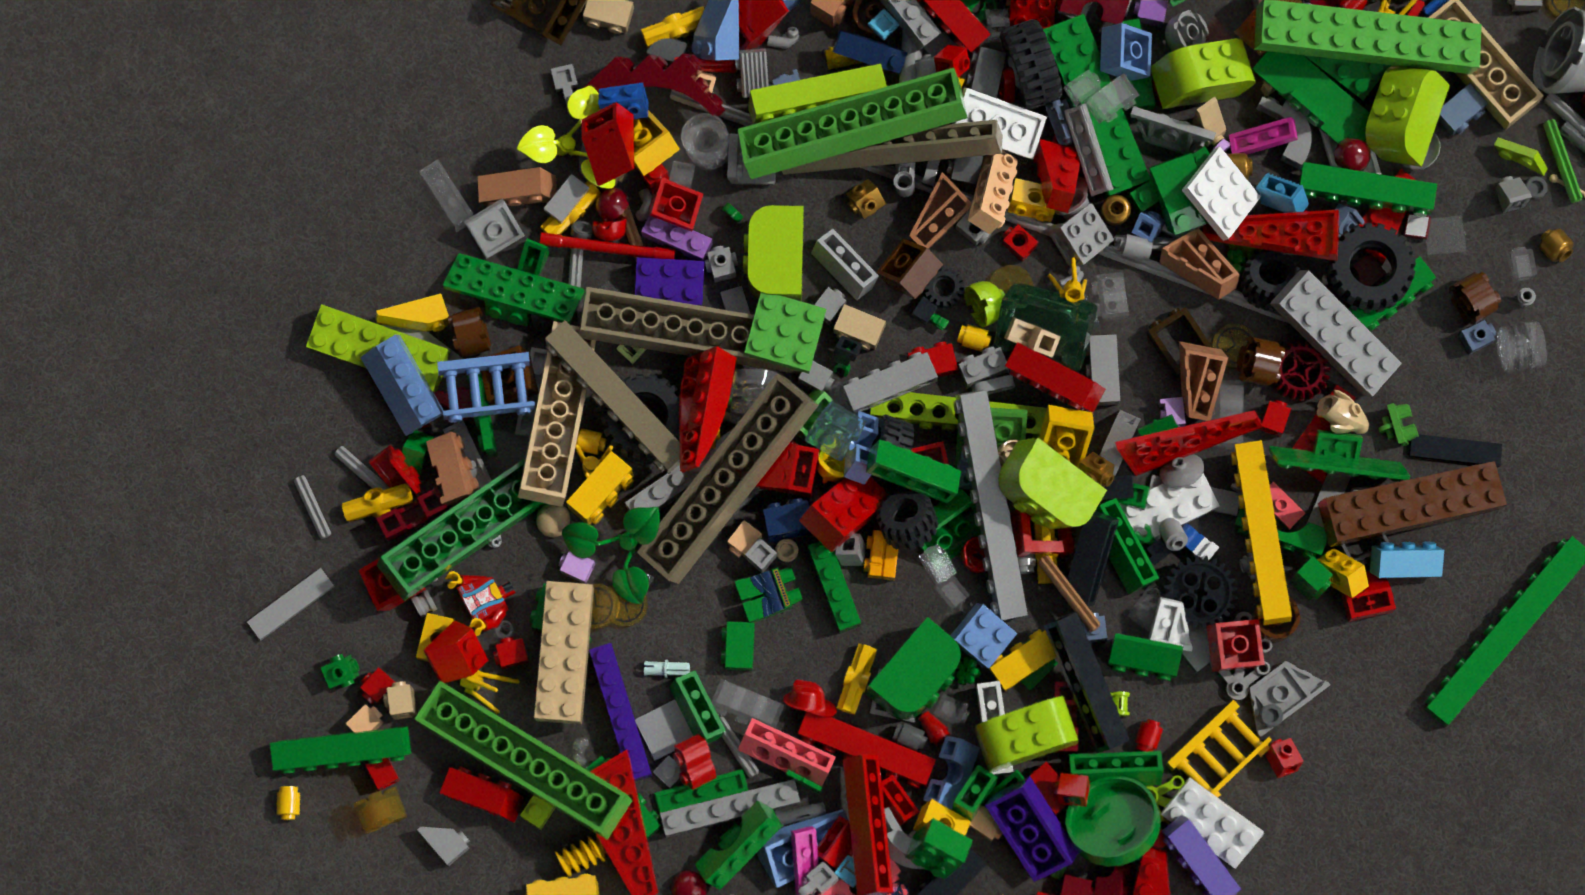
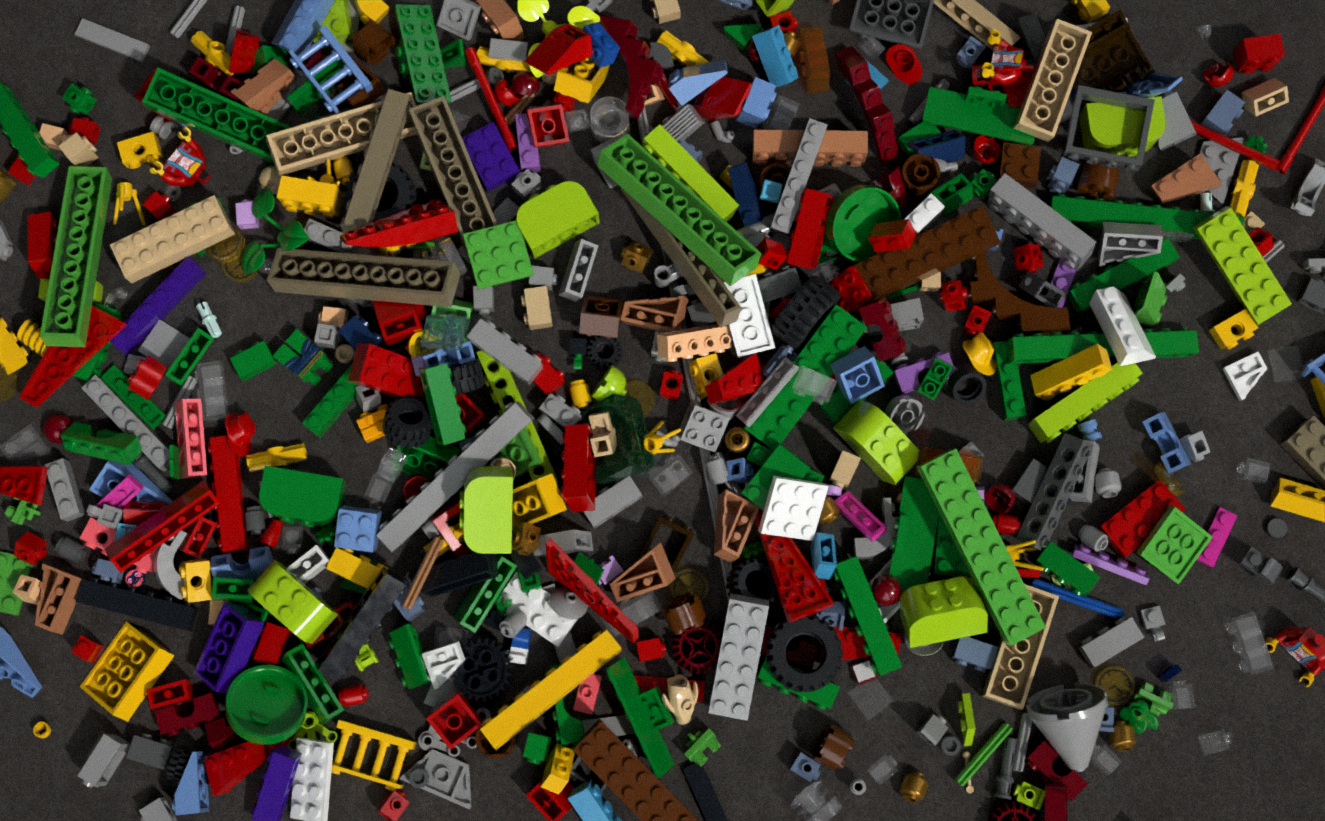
camera: 60 degrees right, 0 degrees up
(455, 653) = (131, 166): red slope -> none
(732, 212) = (570, 171): green tile -> none
(845, 352) = (511, 308): black piece -> none
(938, 848) = (170, 587): green brick -> none
(1072, 789) = (273, 660): red brick -> none
(1083, 87) = (809, 358): clear brick -> none
(1170, 133) = (819, 445): light grey wing -> none

